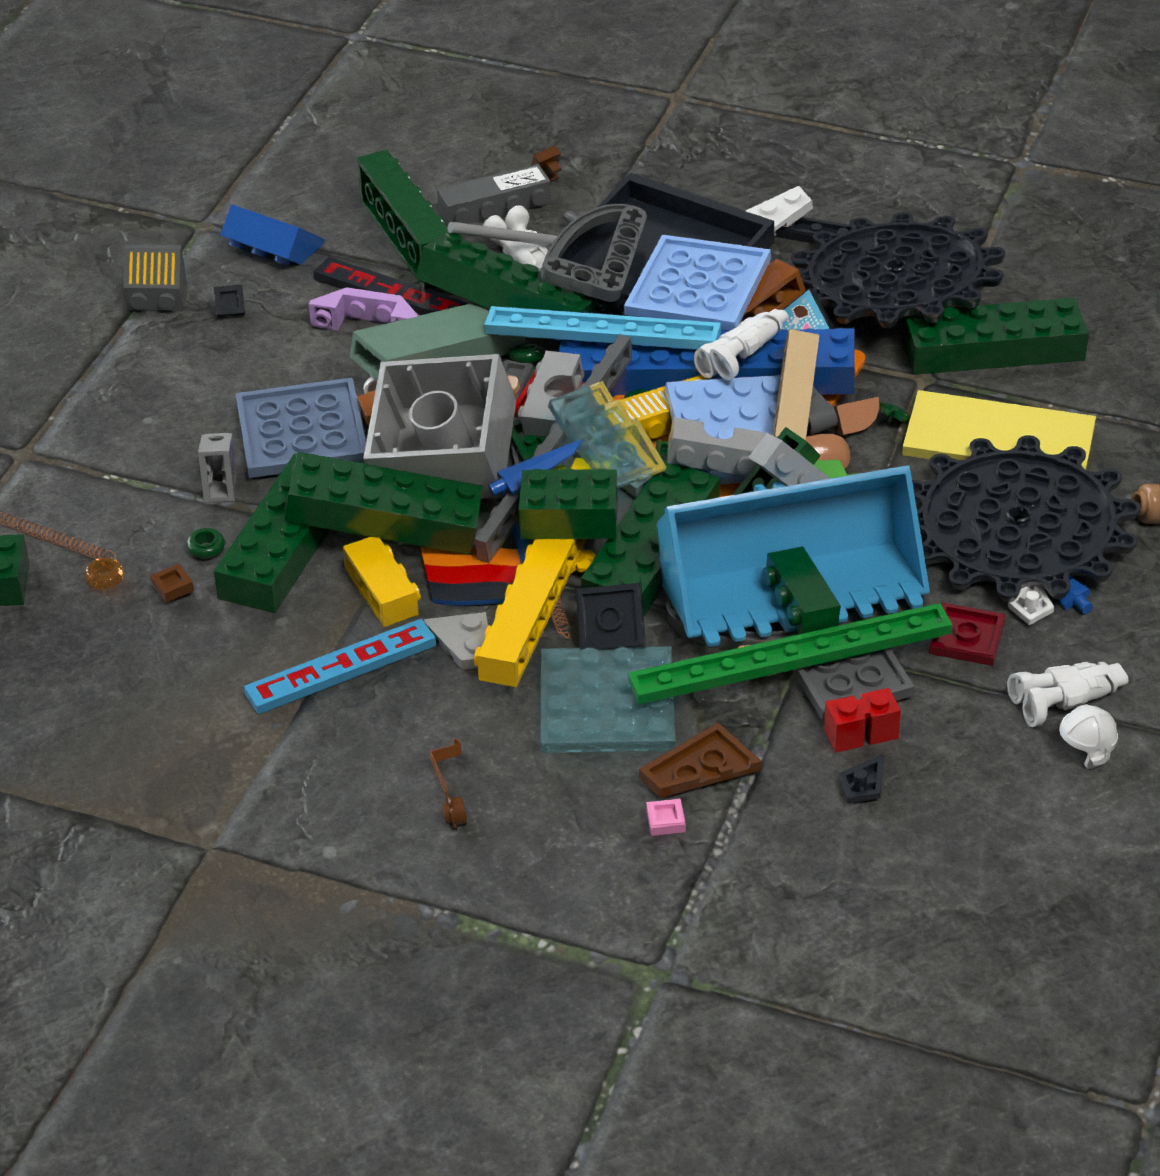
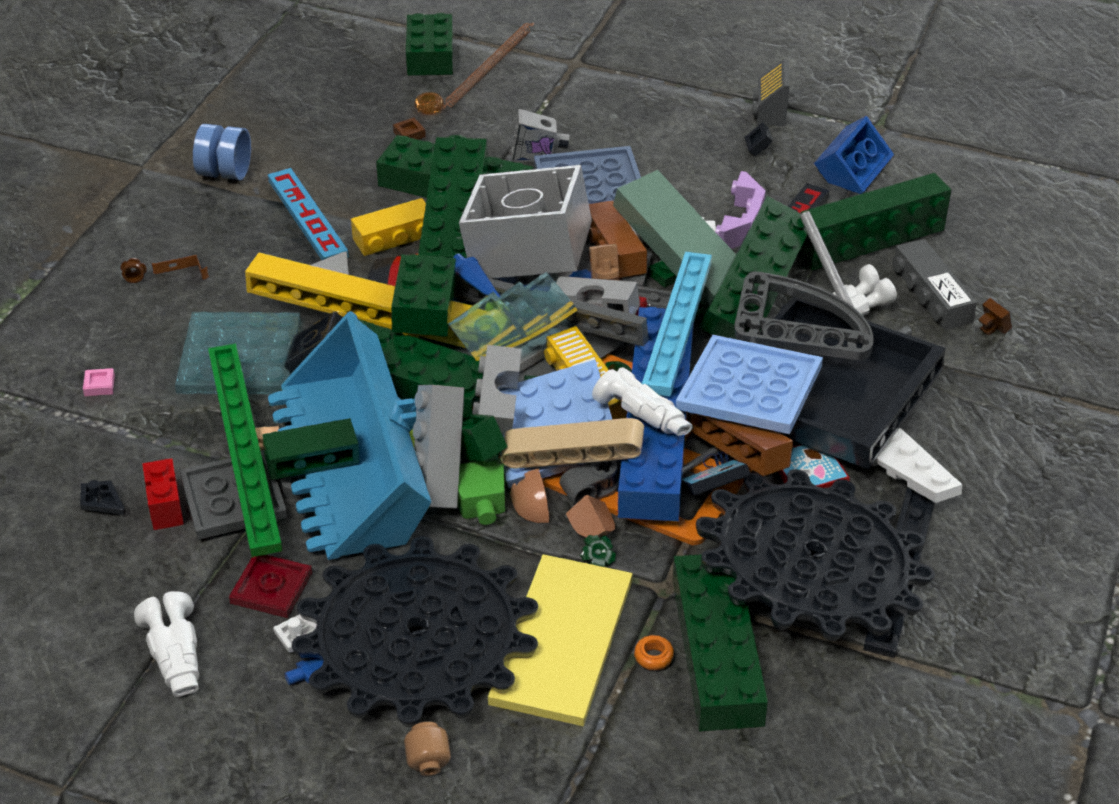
camera: 90 degrees right, 0 degrees up
(227, 737) = (222, 151): none -> medium blue wheel
(699, 762) = (147, 399): reddish brown wing -> none
(1008, 380) = (654, 643): none -> orange piece
(1090, 731) = (101, 646): white cap -> none

